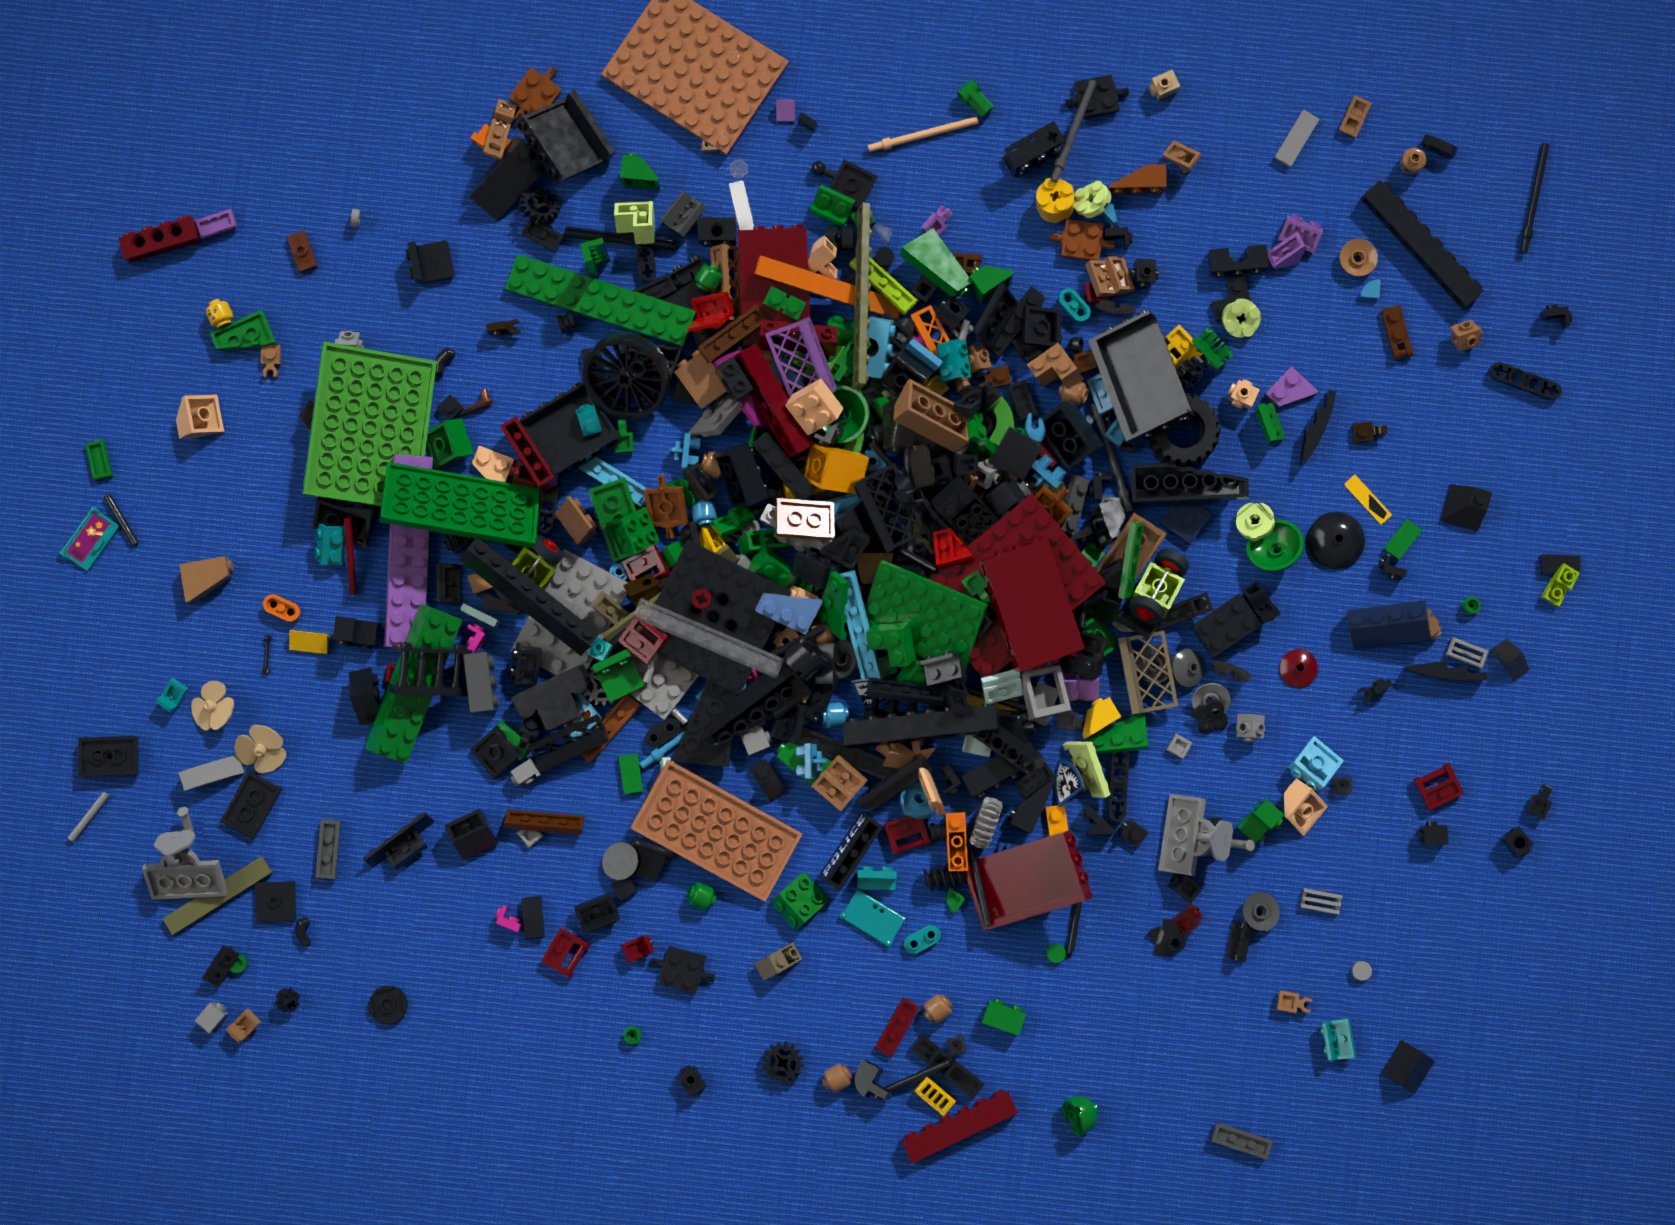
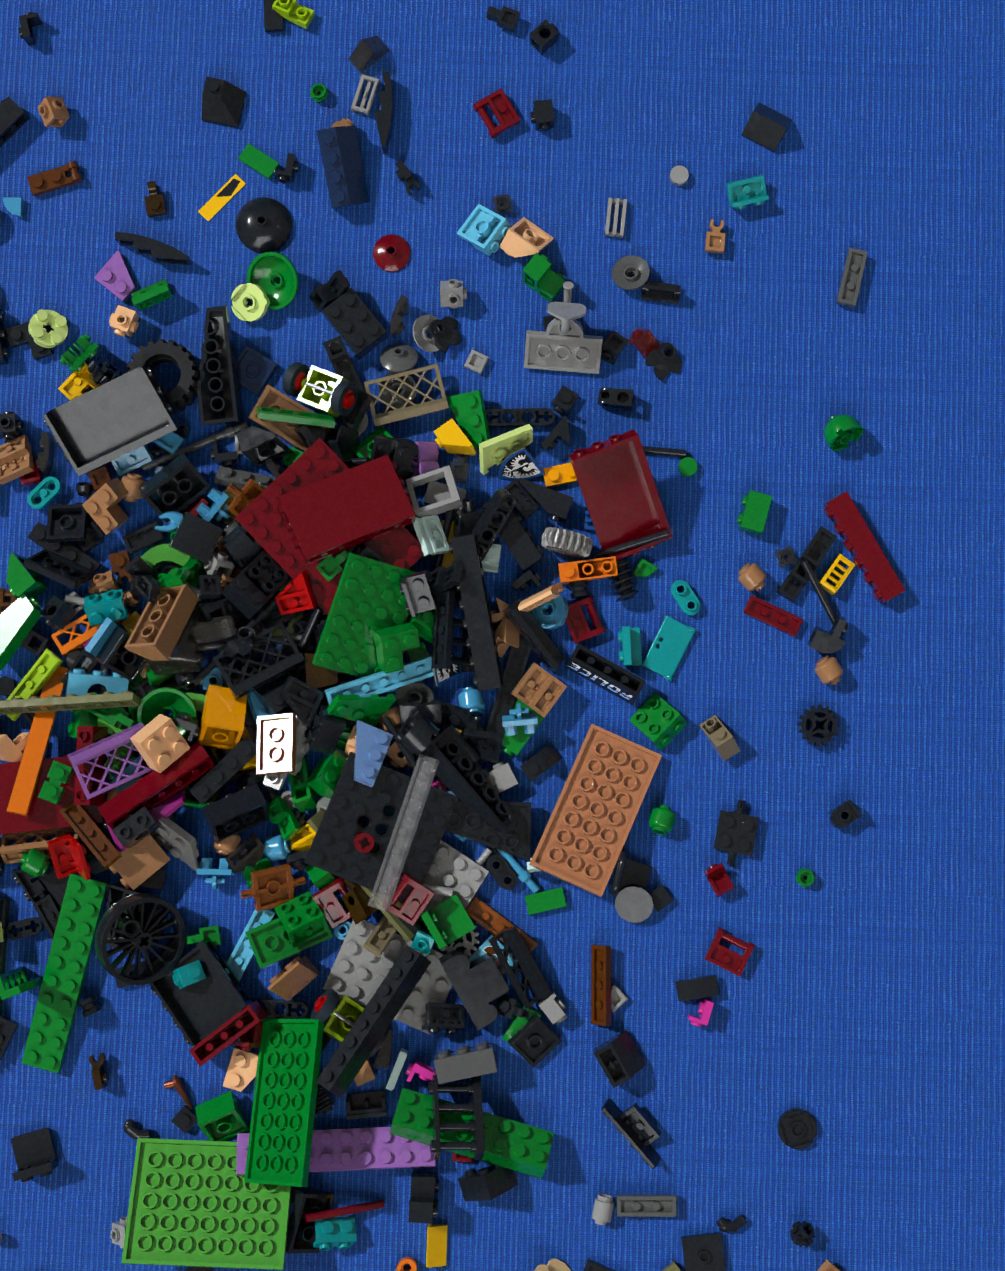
camera: 90 degrees left, 0 degrees up
(328, 806) = (603, 1209): none -> light grey brick
(597, 913) = (687, 923): black bracket -> none
(1131, 886) = (616, 398): none -> black leg
(1525, 379) = (93, 54): black beam -> none

